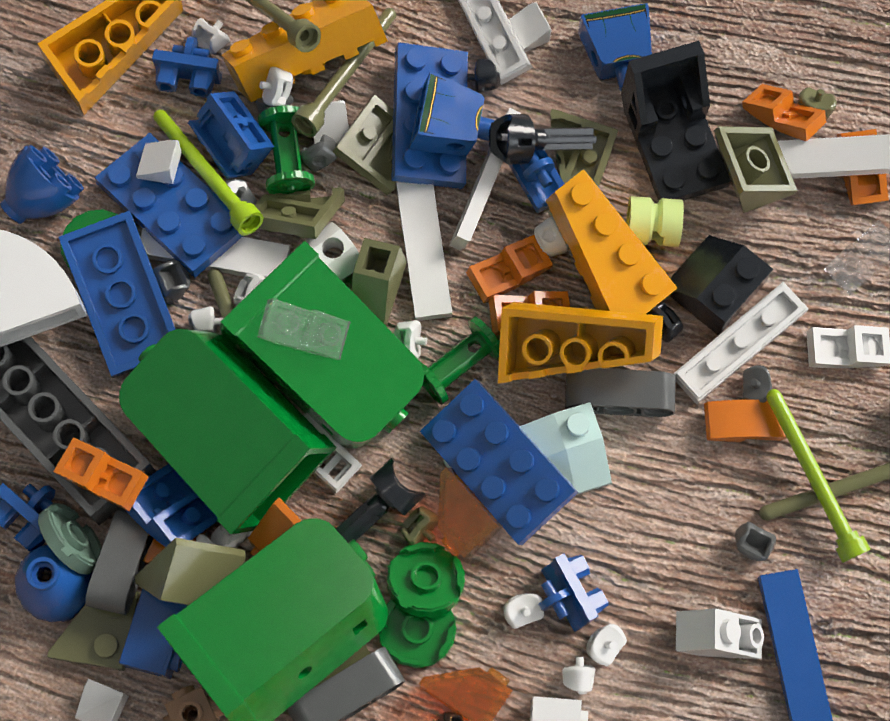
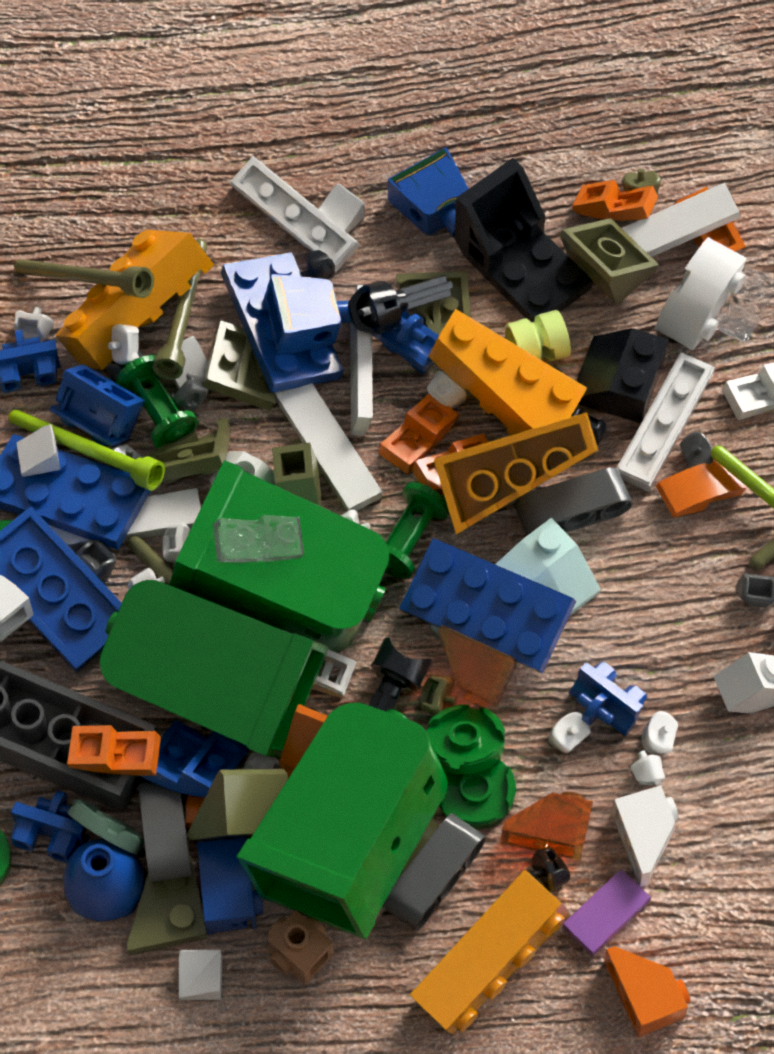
camera: 20 degrees left, 10 degrees down
(830, 230) = (707, 283): none -> white brick

